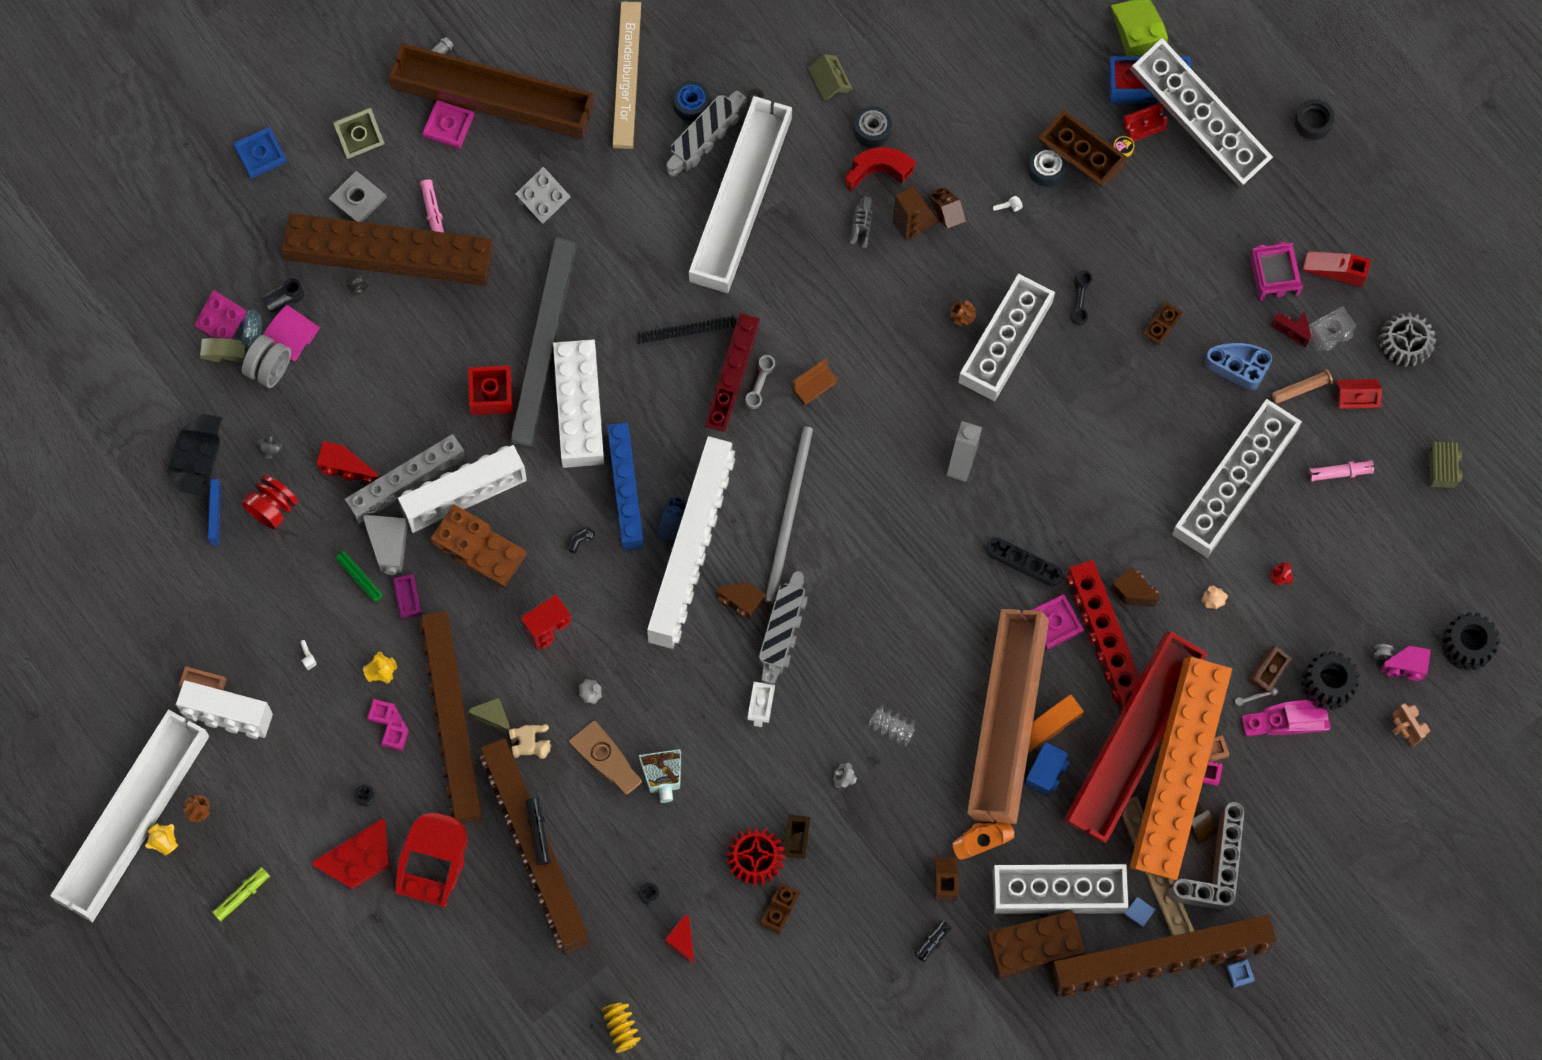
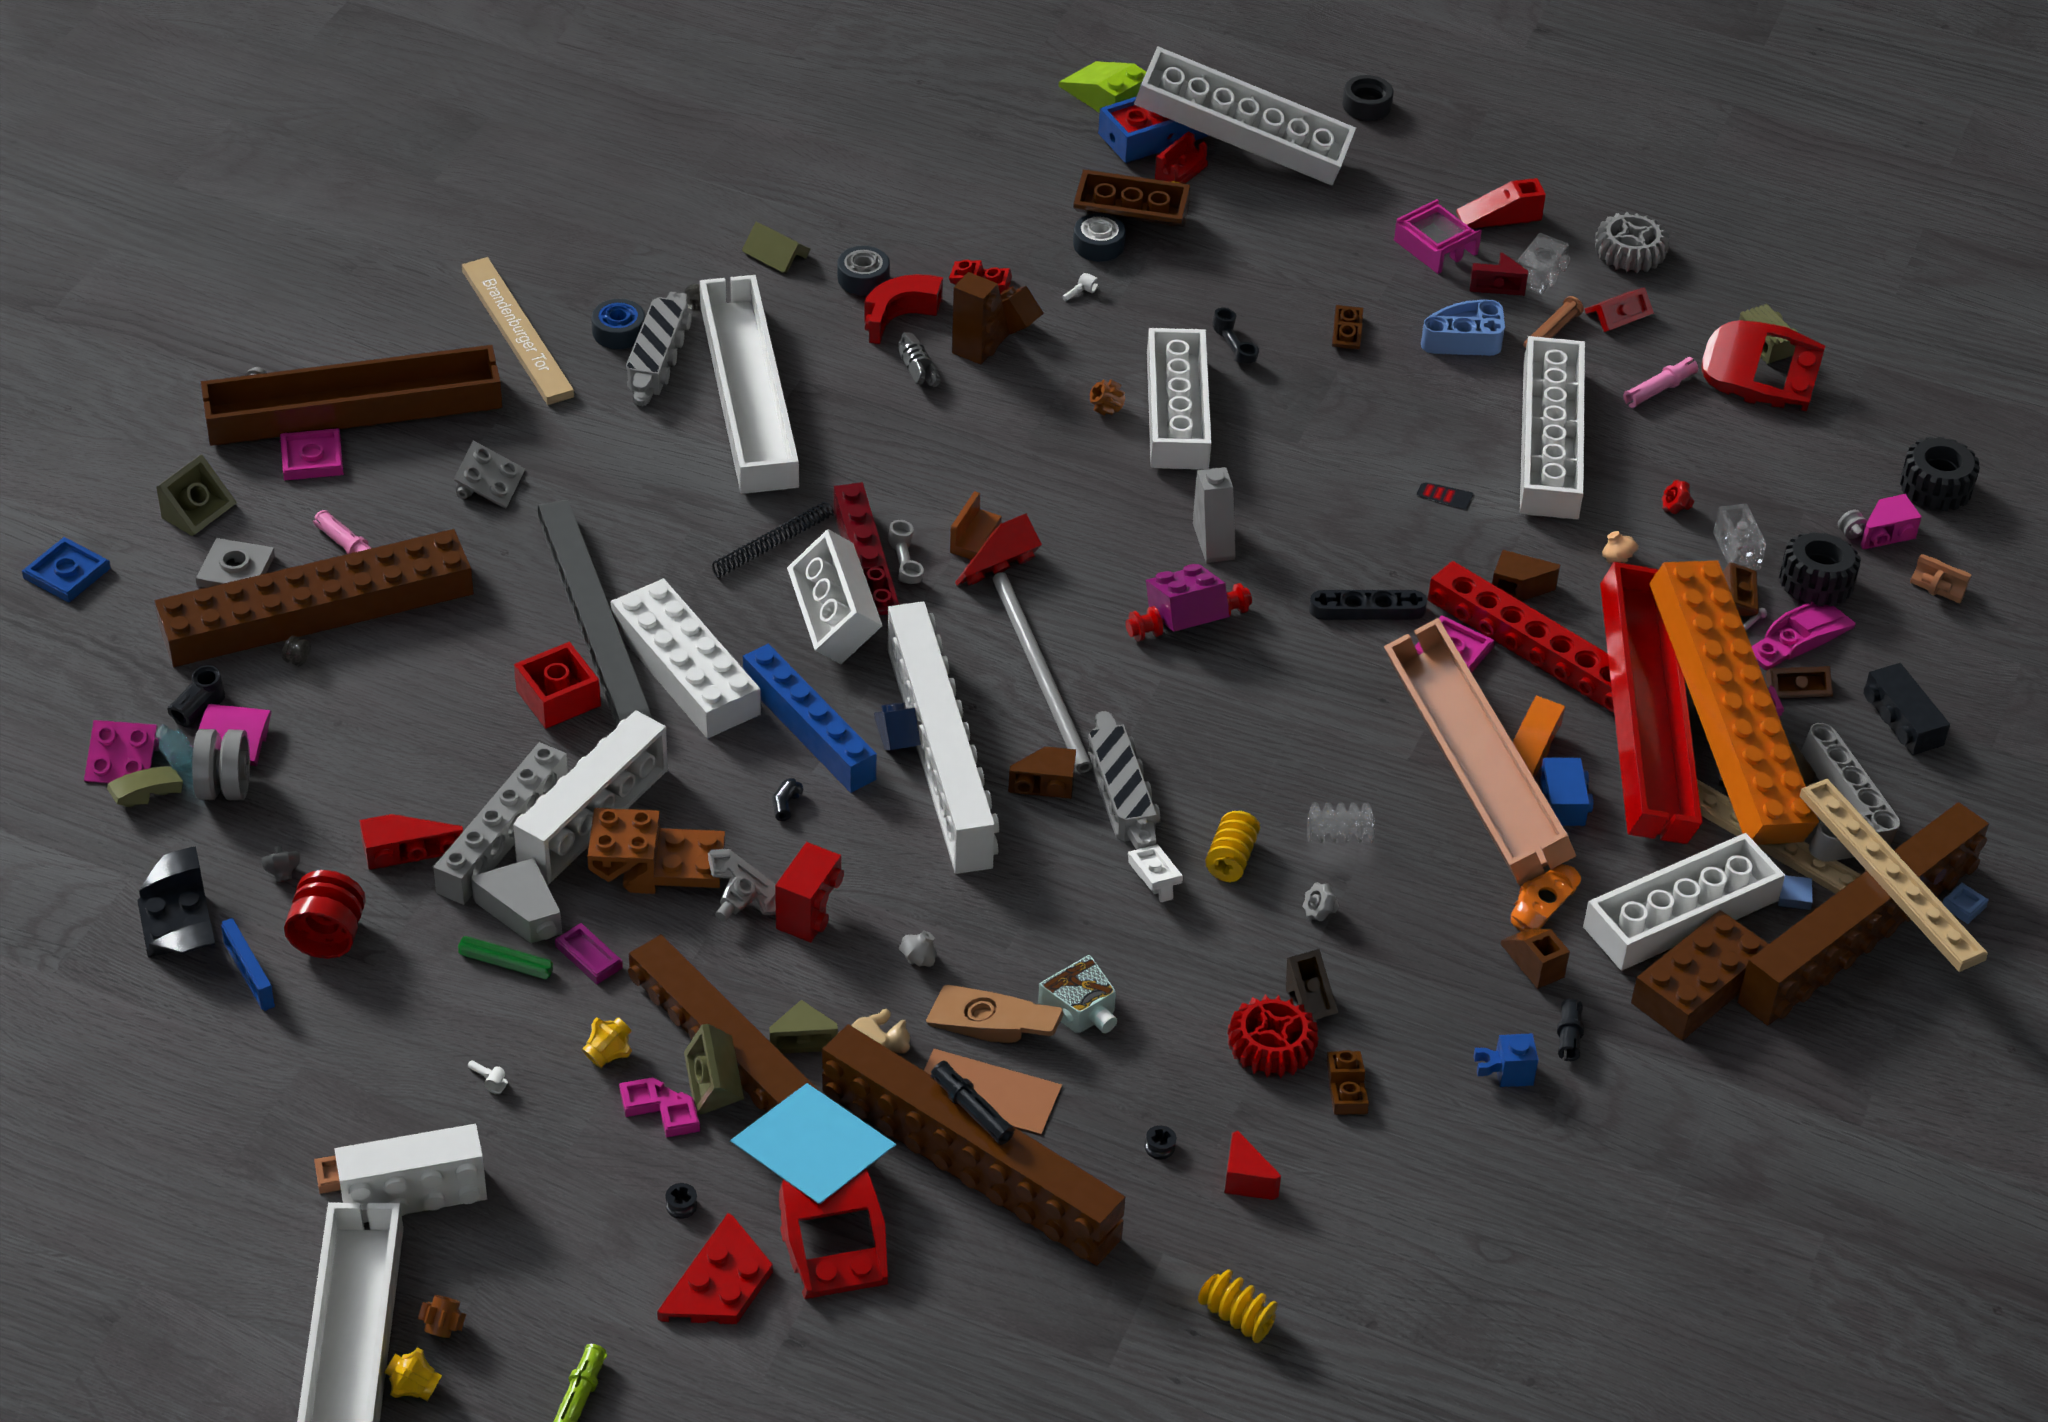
camera: 30 degrees left, 25 degrees down
(424, 723) = (712, 1069): none -> olive slope
(446, 803) = (813, 1143): none -> medium azure piece
(516, 596) = (743, 886): none -> light grey piece
(575, 806) = (1015, 1096): none -> nougat piece
(689, 403) = (834, 596): none -> white brick
(816, 708) = (1232, 845): none -> yellow piece
(820, 408) = (1007, 543): none -> red slope
(882, 946) = (1513, 1060): none -> blue brick
(906, 510) = (1185, 601): none -> magenta brick
(947, 165) = (998, 275): none -> red slope
(1135, 494) = (1445, 495): none -> black sticker
(1185, 948) = (1893, 875): none -> tan tile
(1258, 758) = (1801, 682): none -> reddish brown slope
(1295, 630) = (1739, 536): none -> clear brick
(1307, 814) = (1906, 709): none -> black brick
(1401, 476) = (1734, 356): none -> red slope

